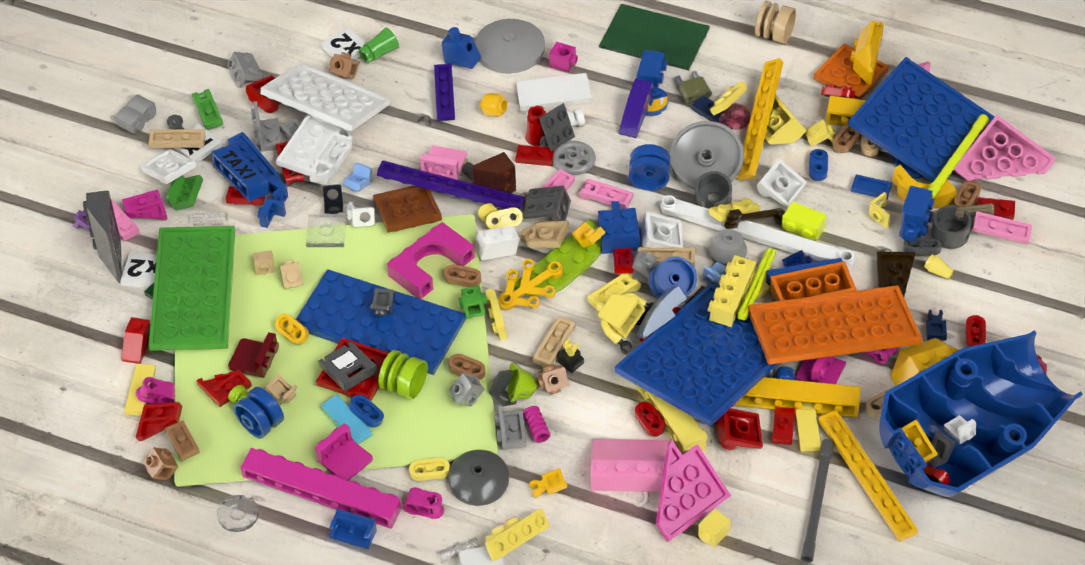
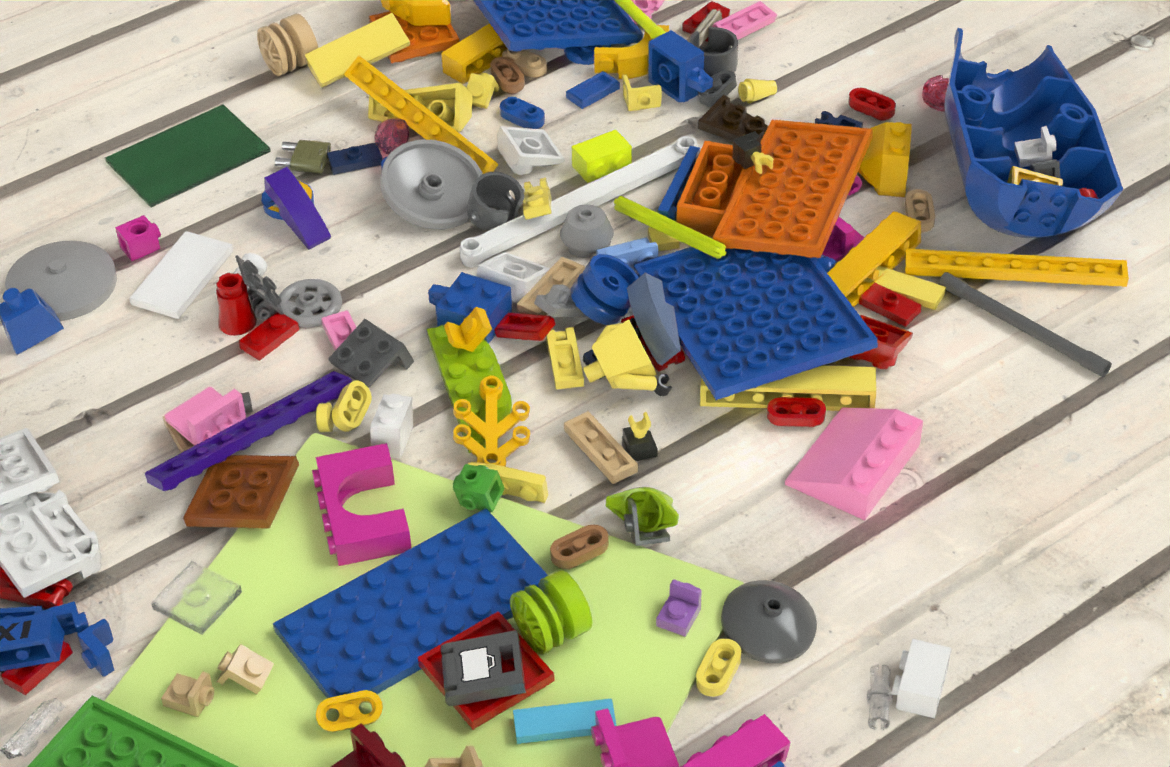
camera: 60 degrees left, 5 degrees down
(333, 206) = (151, 572): black bracket -> none
(354, 213) = (204, 550): white bracket -> none
(359, 178) = (133, 520): light blue bracket -> none
(366, 411) = (572, 687): blue plate -> none
(382, 302) = (403, 578): dark grey bracket -> none
(422, 501) = (776, 695): dark pink piece -> none
(444, 92) = (74, 371): dark purple plate -> none
(453, 432) = (680, 608): none -> medium lavender bracket
(464, 275) = (413, 485): medium nougat plate -> none
(466, 389) = (625, 548): light grey brick -> none
(493, 104) = (149, 333): yellow head -> none
(495, 173) = (282, 369): copper slope -> none
(511, 429) = (713, 550): light grey bracket -> none
(515, 533) = (899, 620): light yellow bracket -> none
(536, 424) = (724, 521): dark pink piece -> none
(545, 234) = (419, 374): tan plate -> none
(552, 482) = (832, 548): yellow plate -> none
(558, 377) = (667, 469): brick -> none
(605, 193) = (397, 298): bright pink plate -> none
(649, 167) = (406, 234): blue wheel -> none
(652, 67) = (242, 174): blue brick -> none
(687, 490) = (950, 418): wing -> none
(714, 528) = (1012, 426): light yellow brick -> none
(729, 97) = (362, 130): light yellow plate -> none
(732, 290) = (676, 242): light yellow brick -> none
(736, 216) = (559, 189): dark brown hinge -> none
(797, 259) = (657, 186): clear blue bracket -> none
(799, 56) = (370, 42): none -> light yellow brick
(832, 90) = (429, 54): red plate -> none
(842, 286) = (748, 152): none -> pearl dark grey piece
(967, 194) = (675, 24): medium nougat plate -> none

